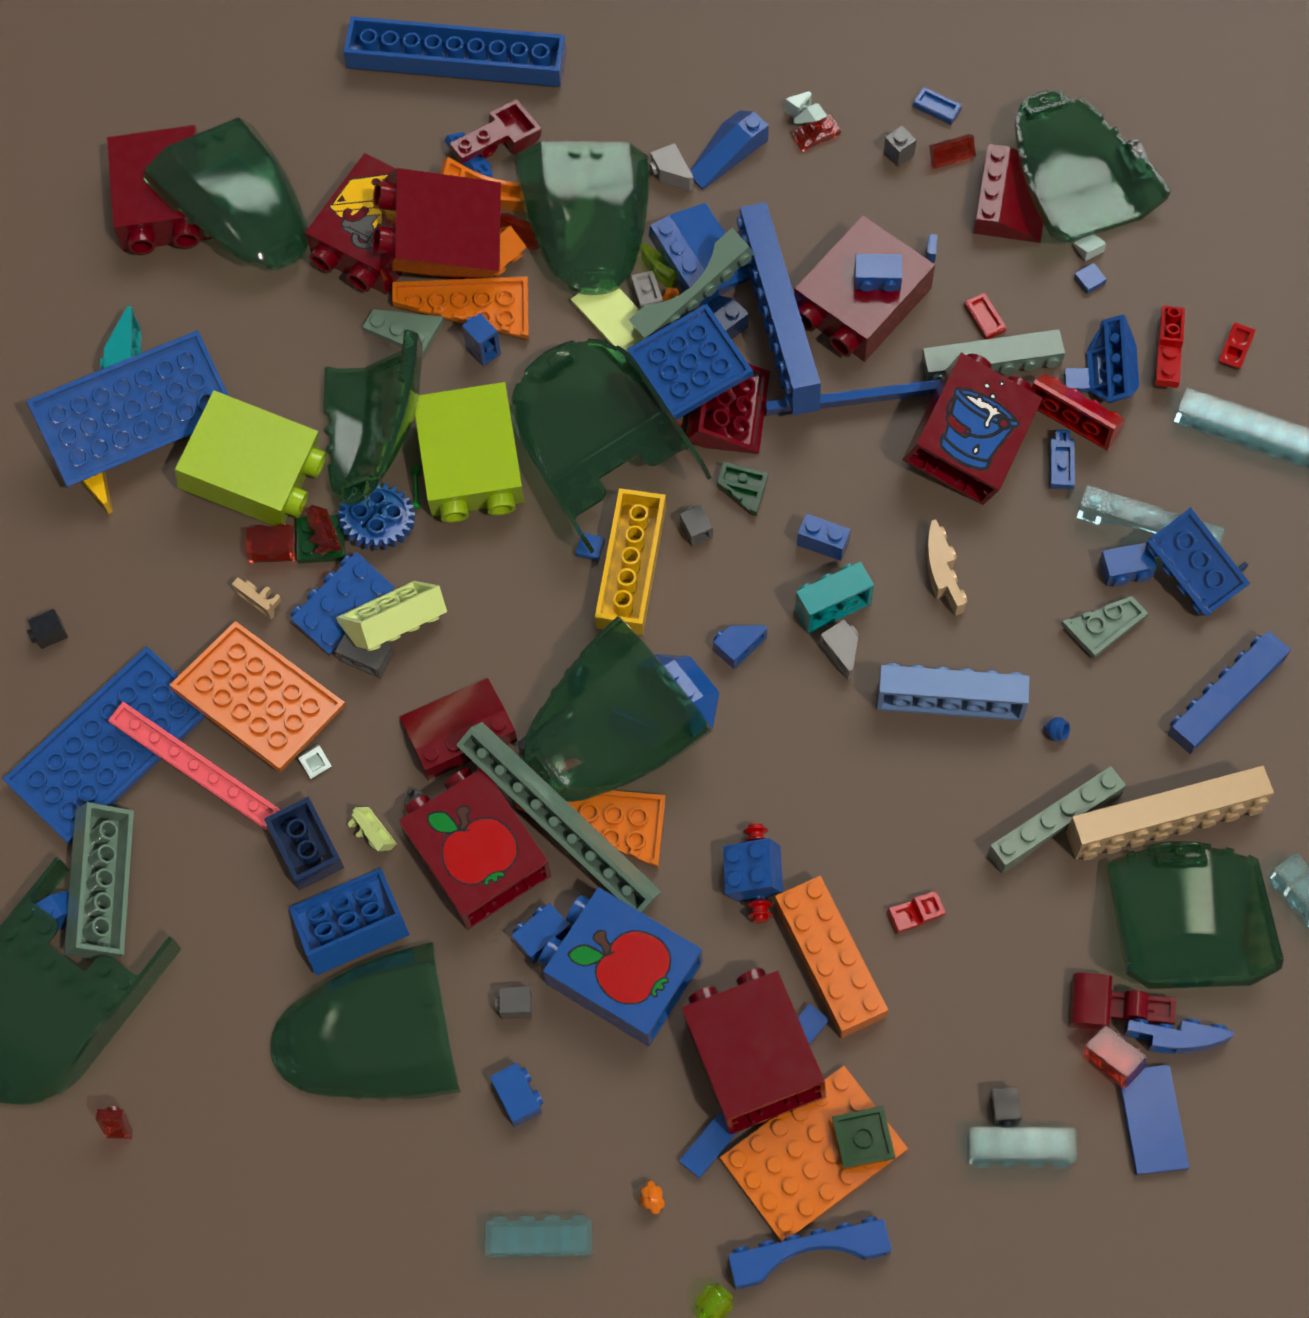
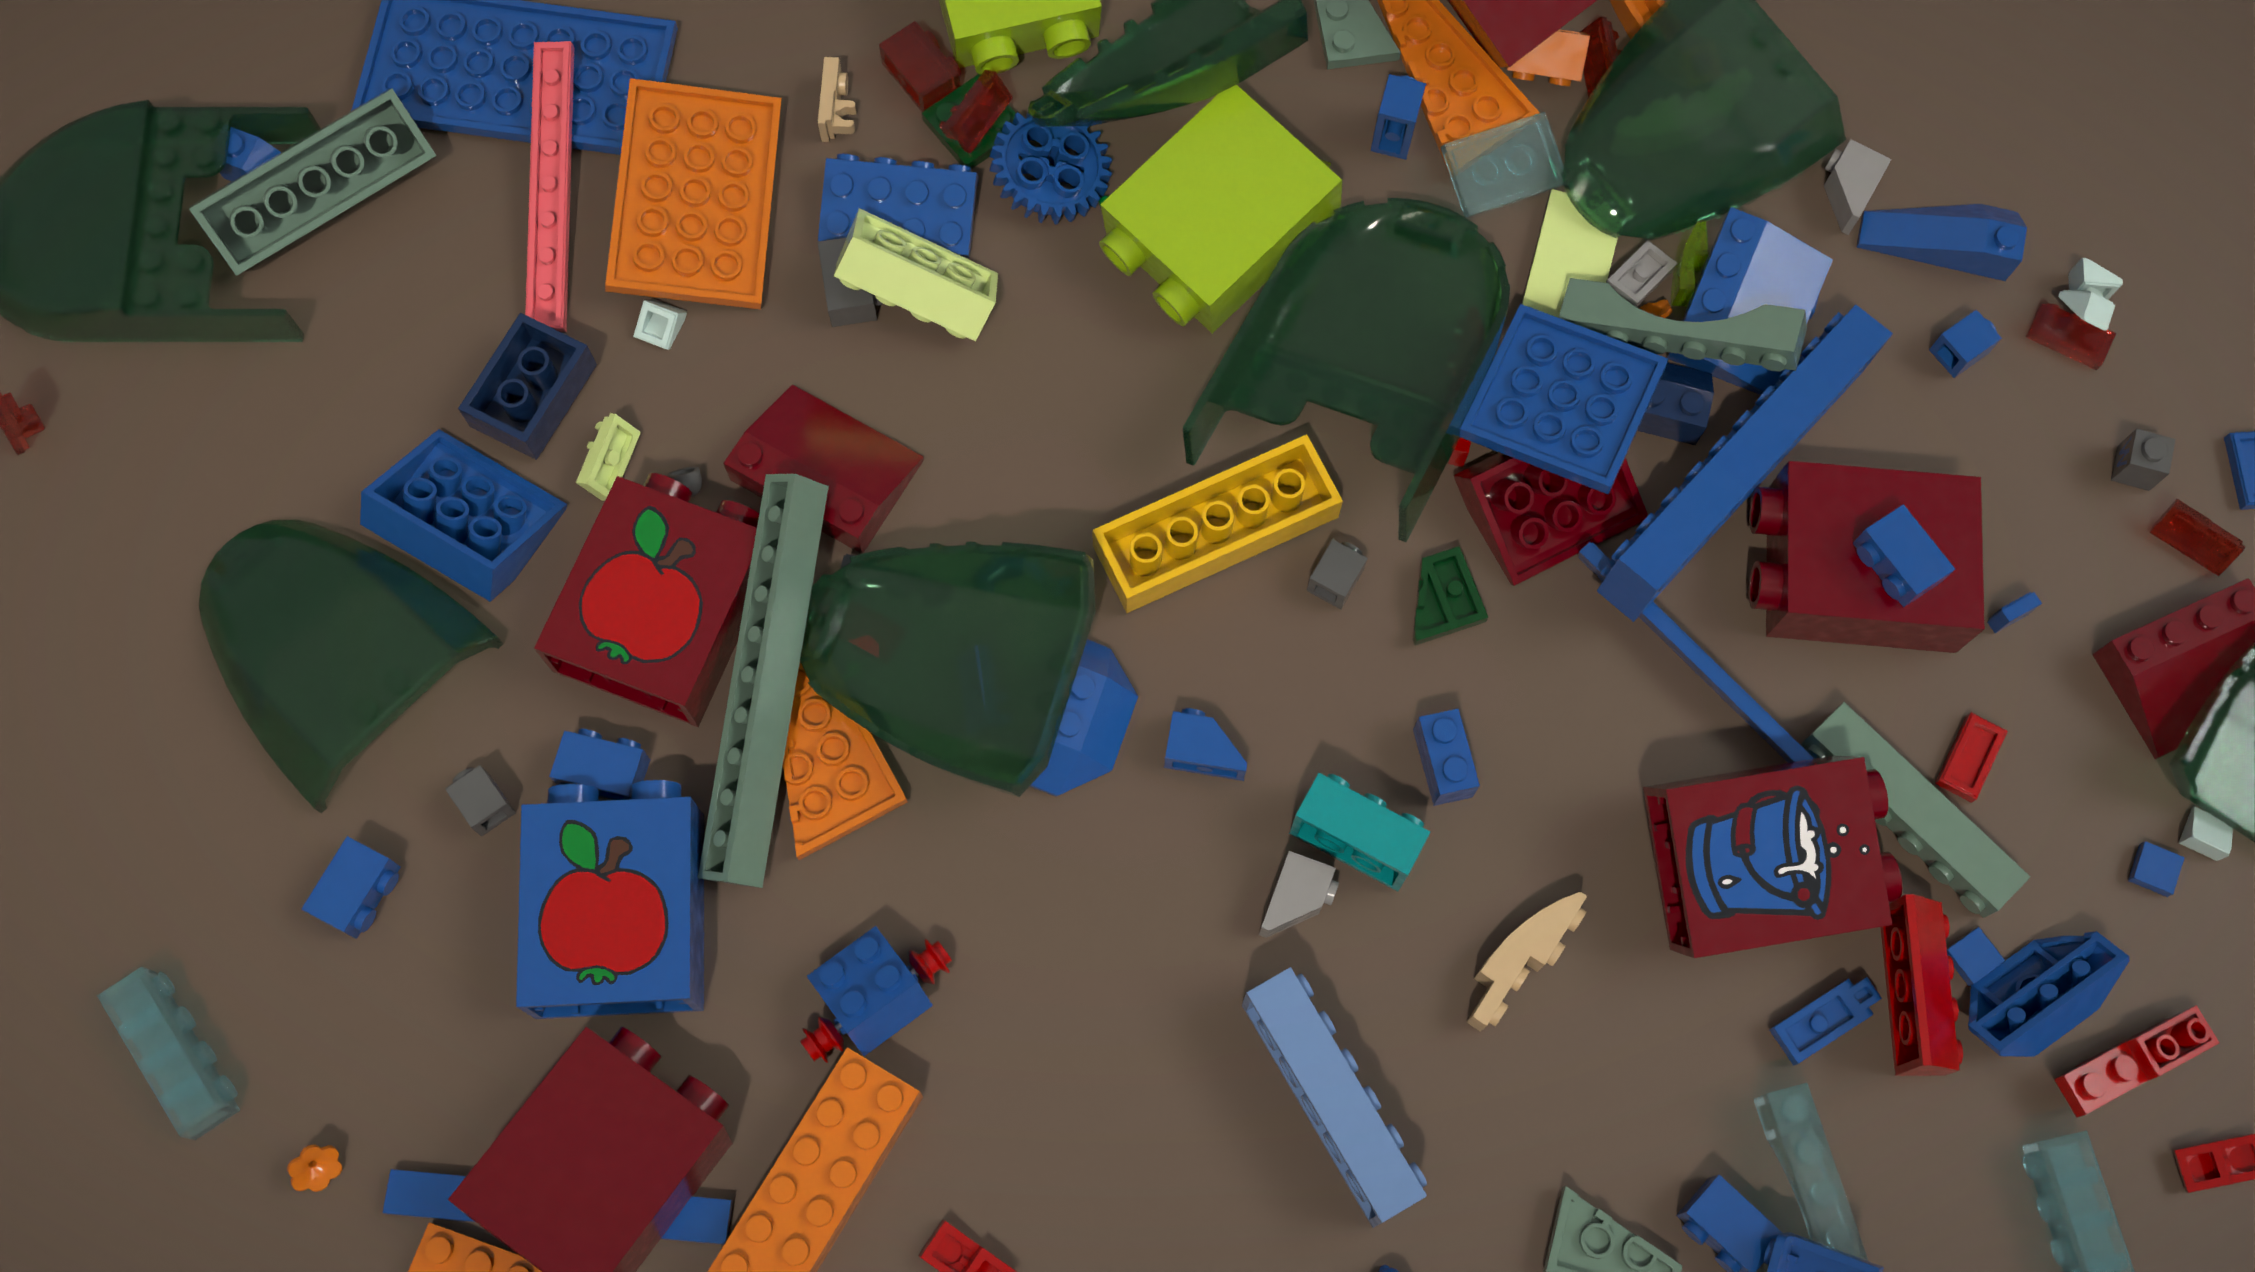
camera: 50 degrees right, 5 degrees up
(542, 310) = (1504, 164): none -> clear light blue tile
(597, 544) = (1211, 461): blue tile -> none
(788, 178) = (1965, 343): none -> blue brick

